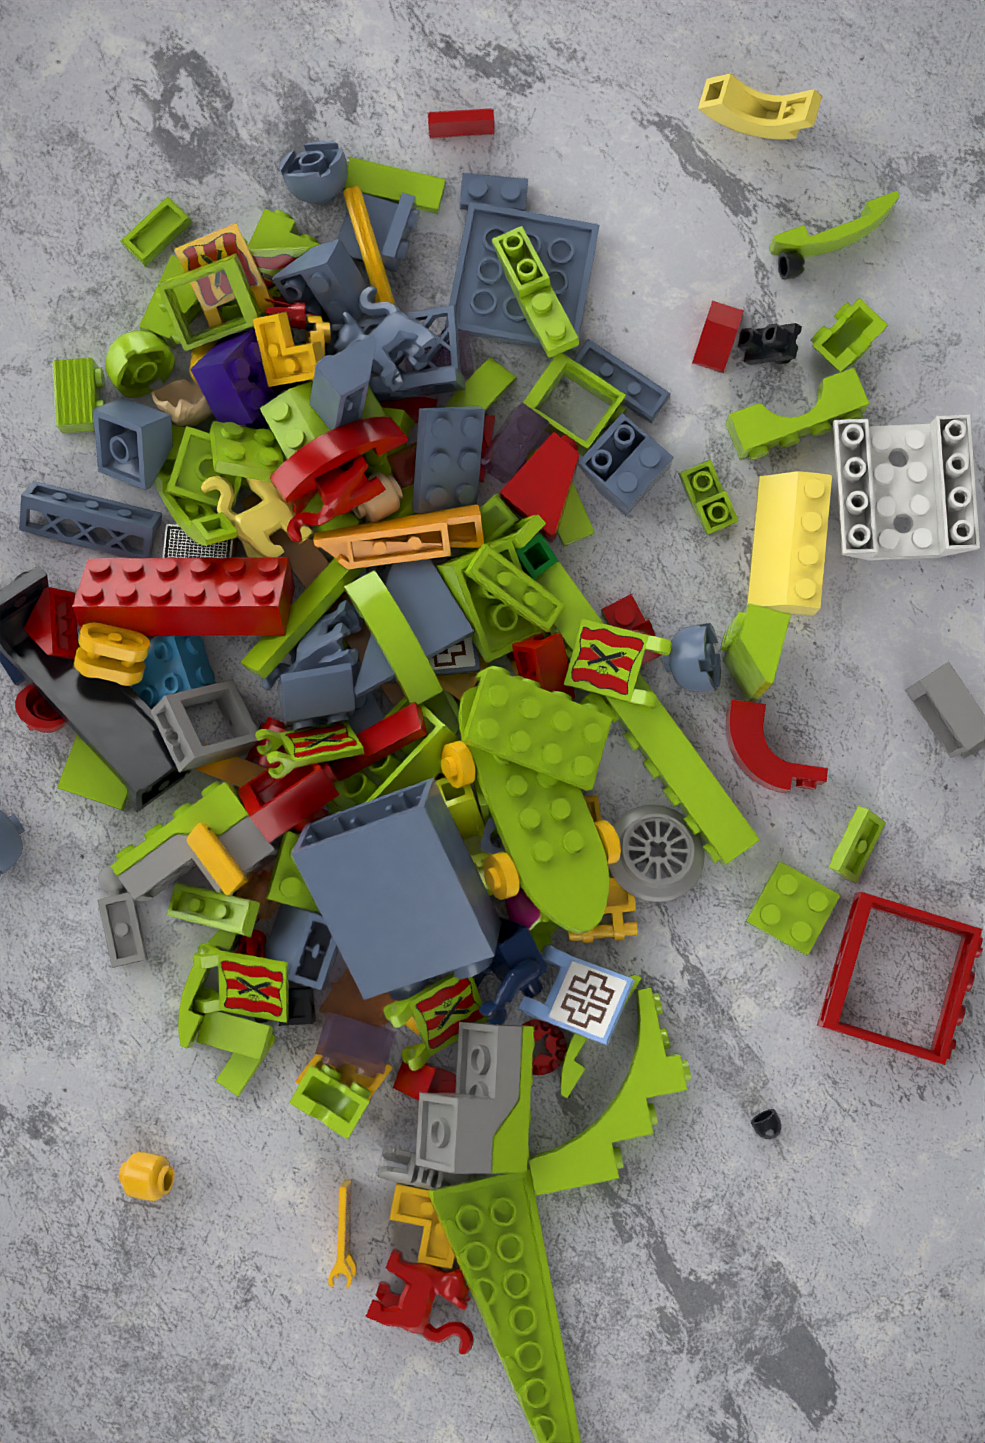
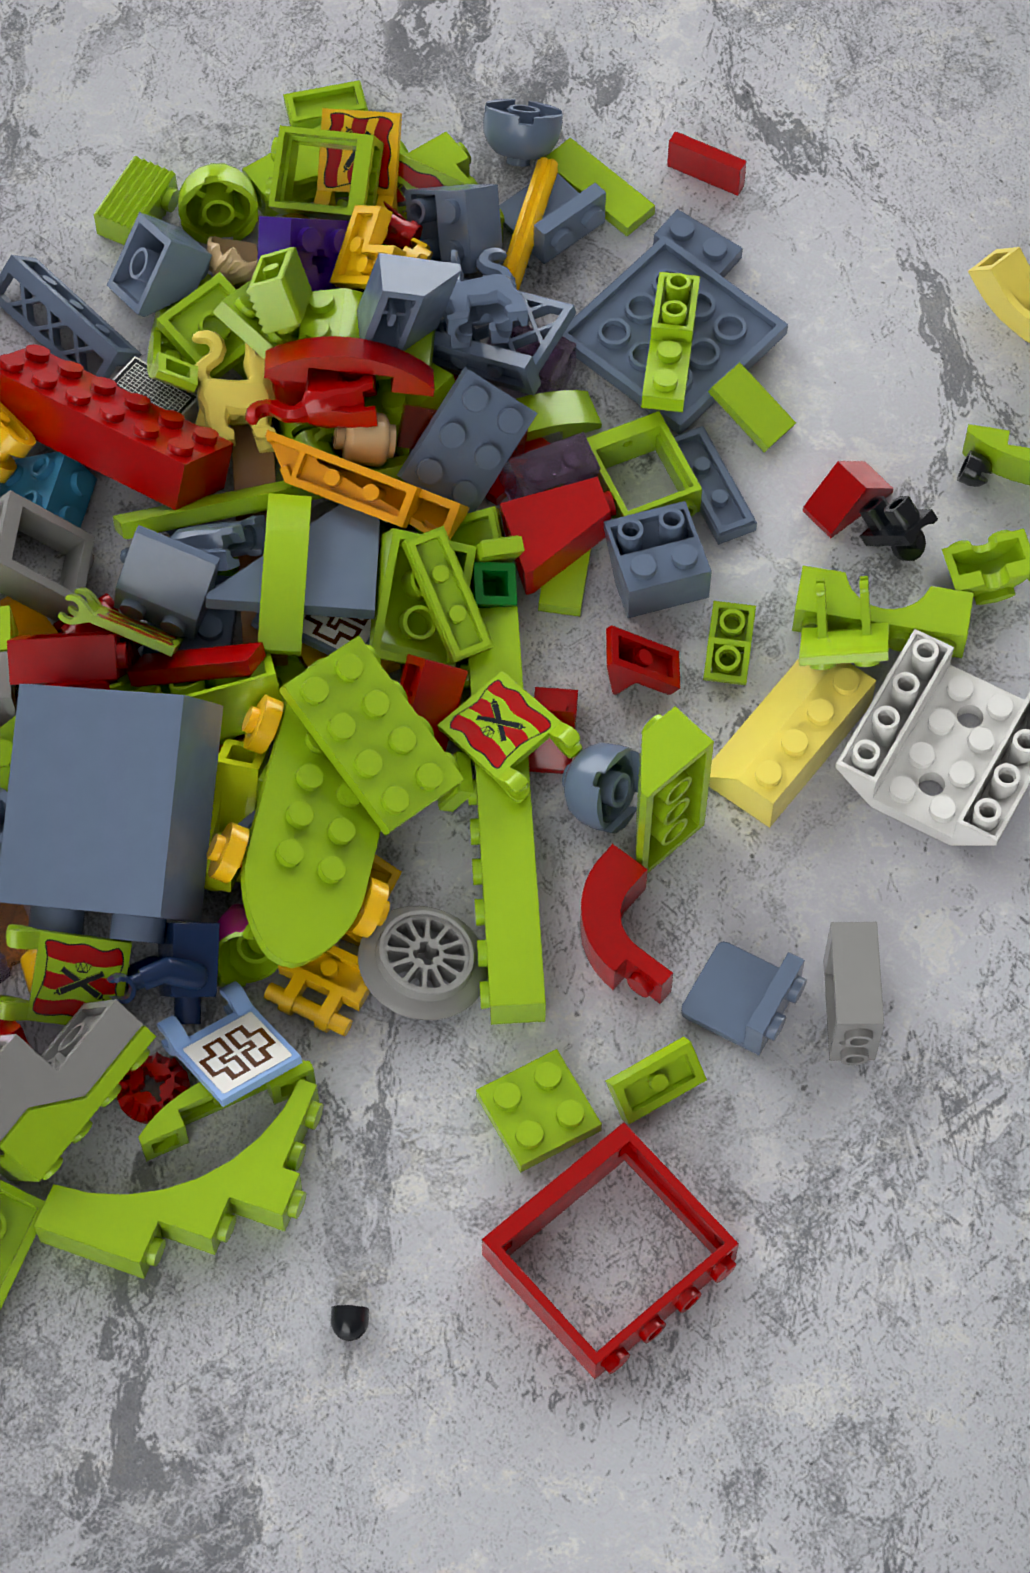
camera: 30 degrees right, 20 degrees down
(251, 427) = (279, 291): none -> lime brick
(614, 305) = (752, 407): none -> lime tile
(664, 550) = (640, 661): none -> red slope
(797, 461) = (860, 646): none -> lime plate
(877, 750) = (744, 996): none -> sand blue bracket

